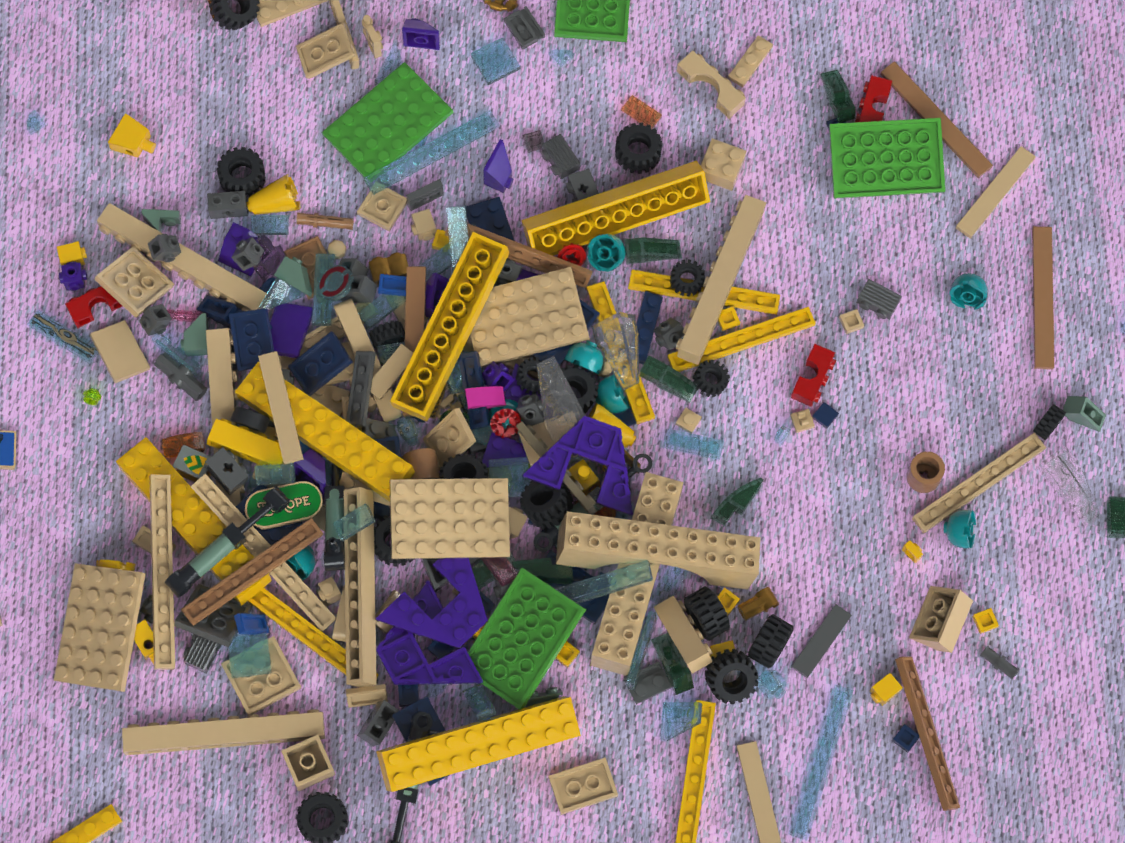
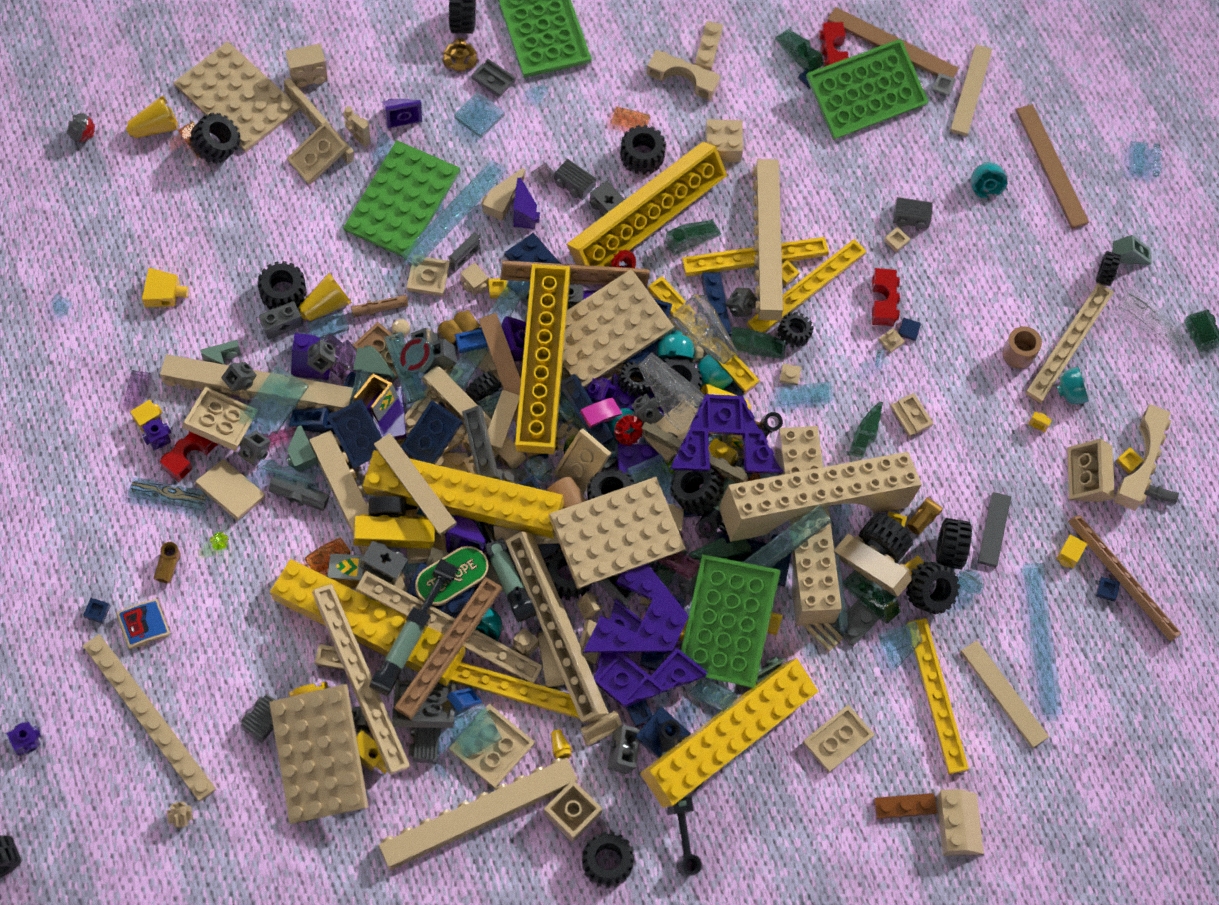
camera: 25 degrees left, 5 degrees down
(36, 403) = (167, 564): none -> pearl gold piece
(61, 576) = (259, 721): none -> dark grey brick
(73, 226) = (137, 388): none -> clear purple tile
(192, 280) = (276, 399): none -> clear light blue tile
(275, 474) = (432, 549): clear light blue plate -> none
(289, 316) = (384, 401): none -> pearl gold piece
(323, 698) = (560, 745): none -> yellow cone
(354, 522) = (529, 566): clear light blue tile -> none
(402, 577) = (588, 605): none -> tan tile
(457, 232) = (516, 277): clear light blue tile -> none
(478, 152) = (501, 196): none -> tan slope
(606, 252) = (654, 249): teal cylinder -> none
(623, 684) = (833, 642): none -> tan tile
(690, 268) = (737, 256): black tyre -> none
(789, 501) = (911, 415): none -> tan plate
(969, 178) = (944, 84): none -> light grey plate
(972, 648) = (1152, 427): none -> tan arch

